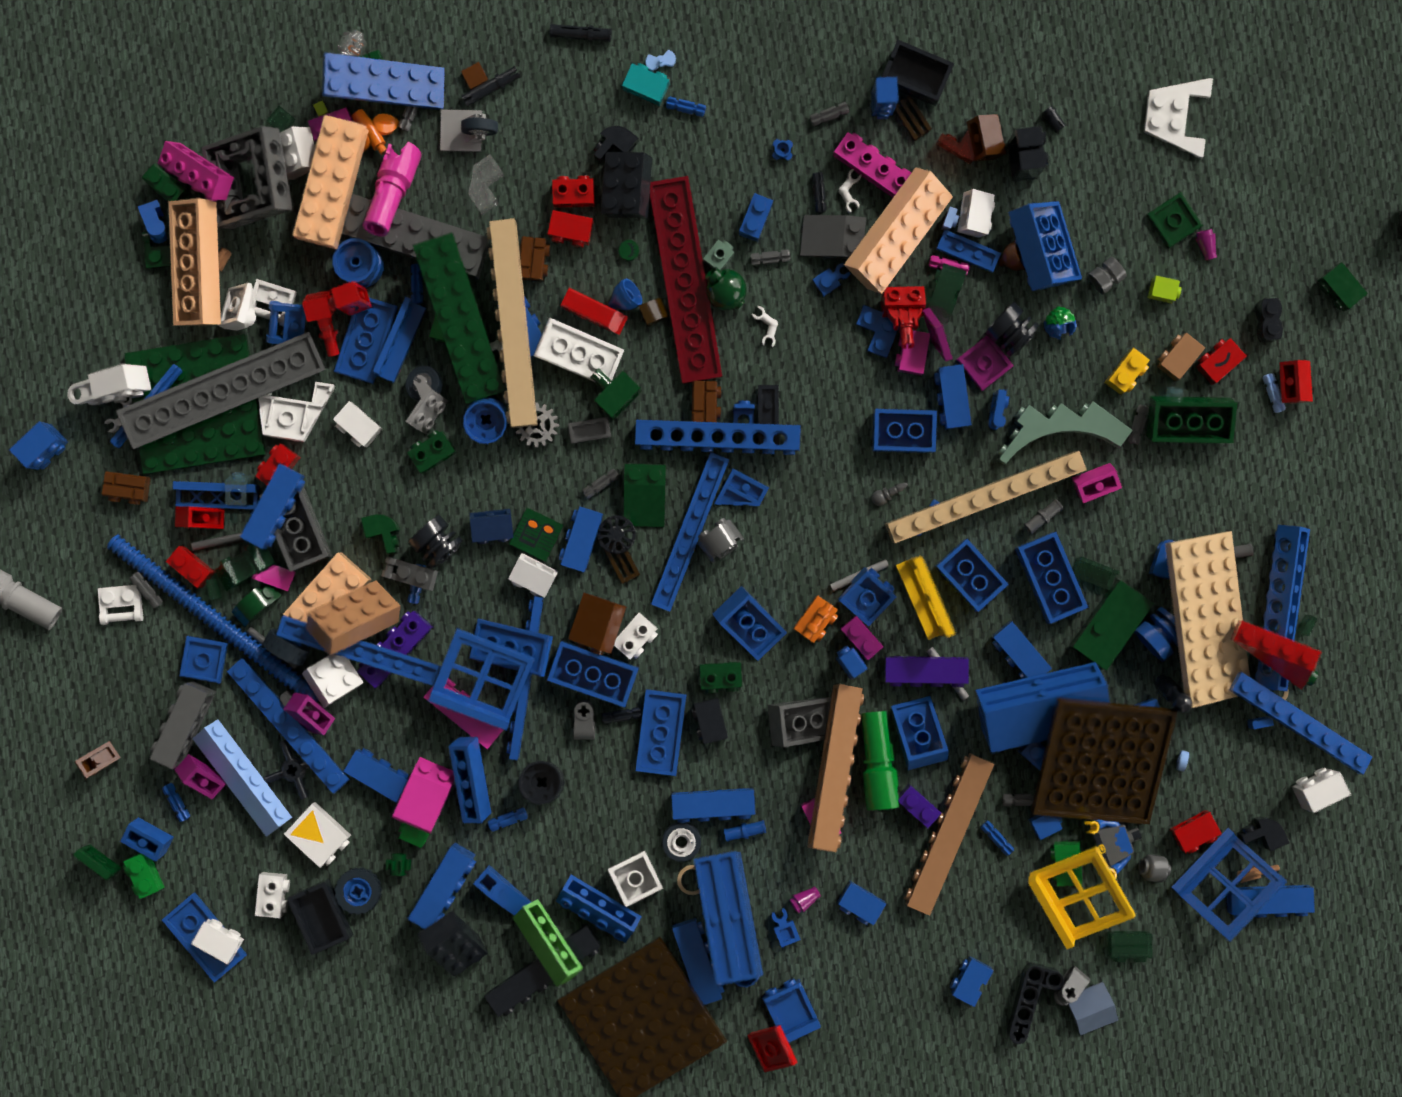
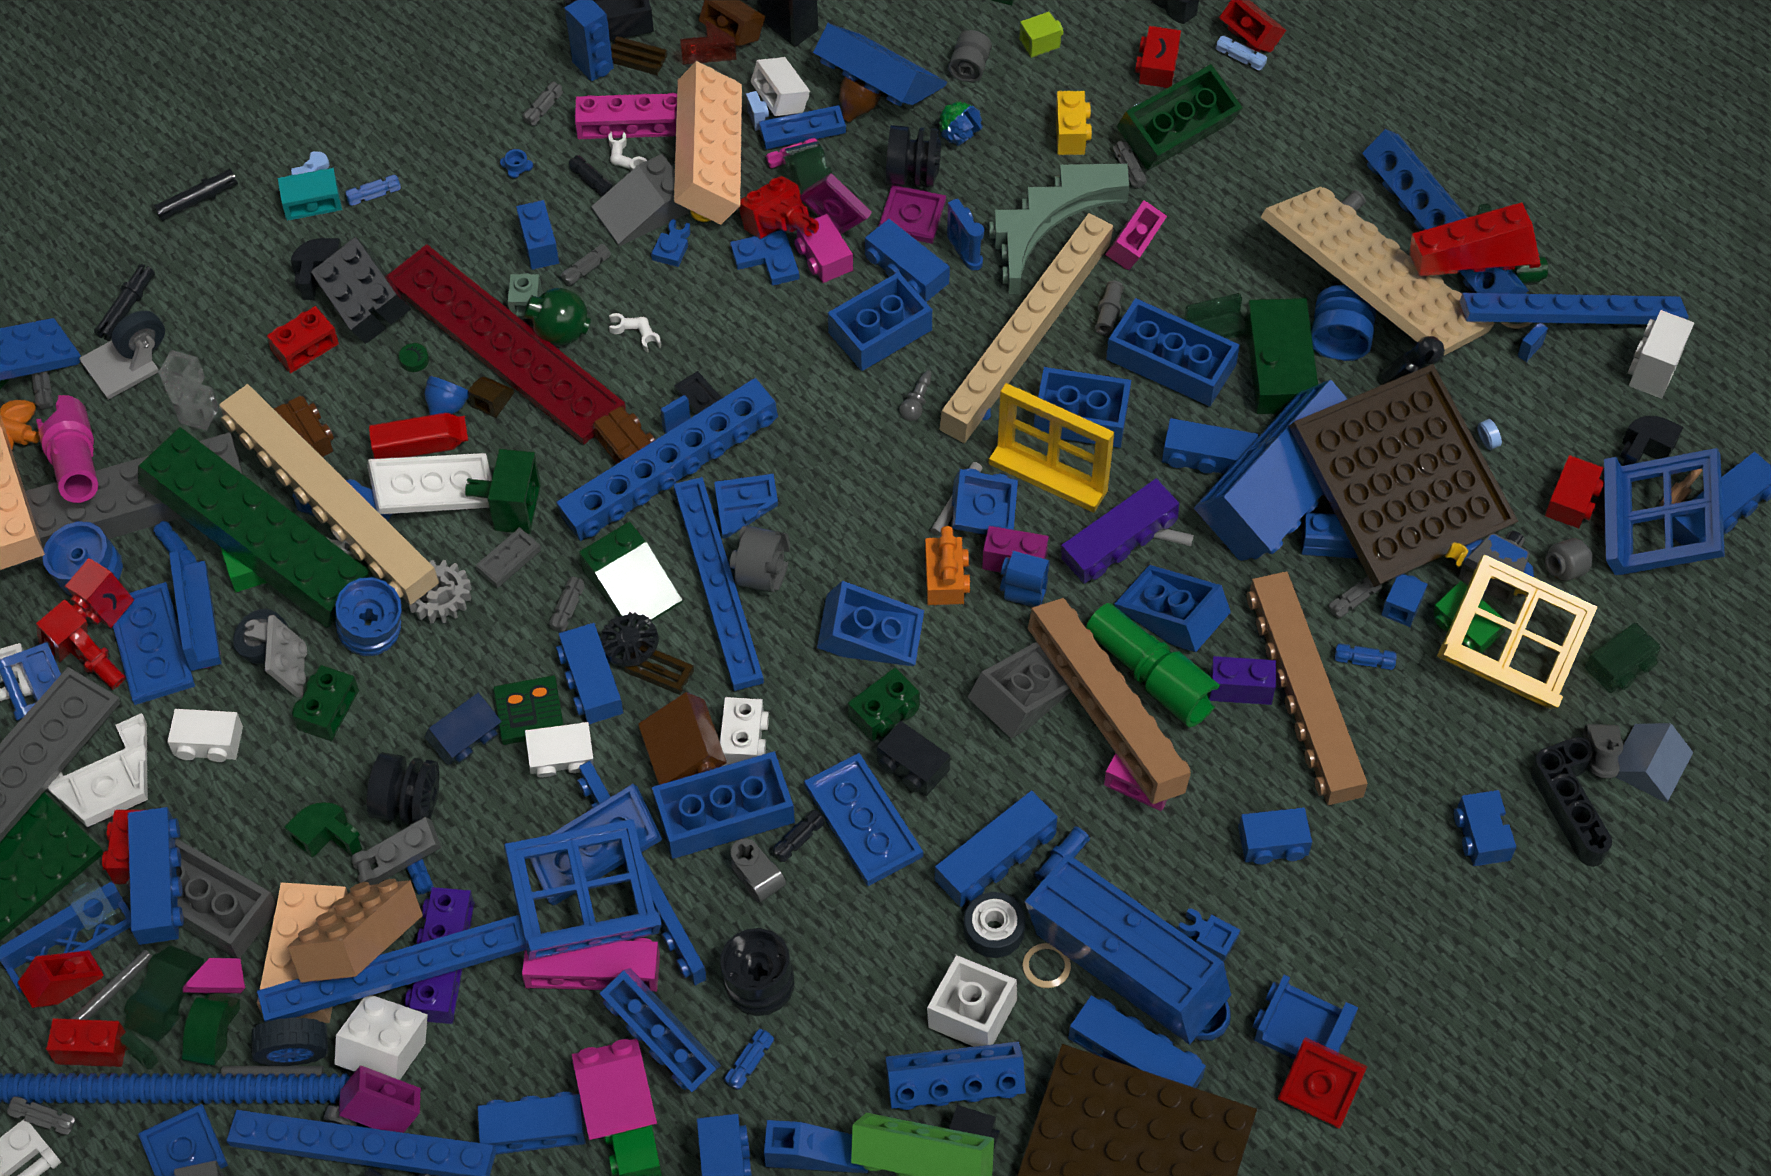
camera: 35 degrees left, 30 degrees down
(474, 75) = (95, 305): reddish brown tile -> none
(570, 228) = (325, 371): red brick -> none
(803, 900) = (1202, 886): magenta cone -> none
(1160, 564) = (1277, 265): blue leg -> none
(1180, 356) = (1114, 78): medium nougat brick -> none

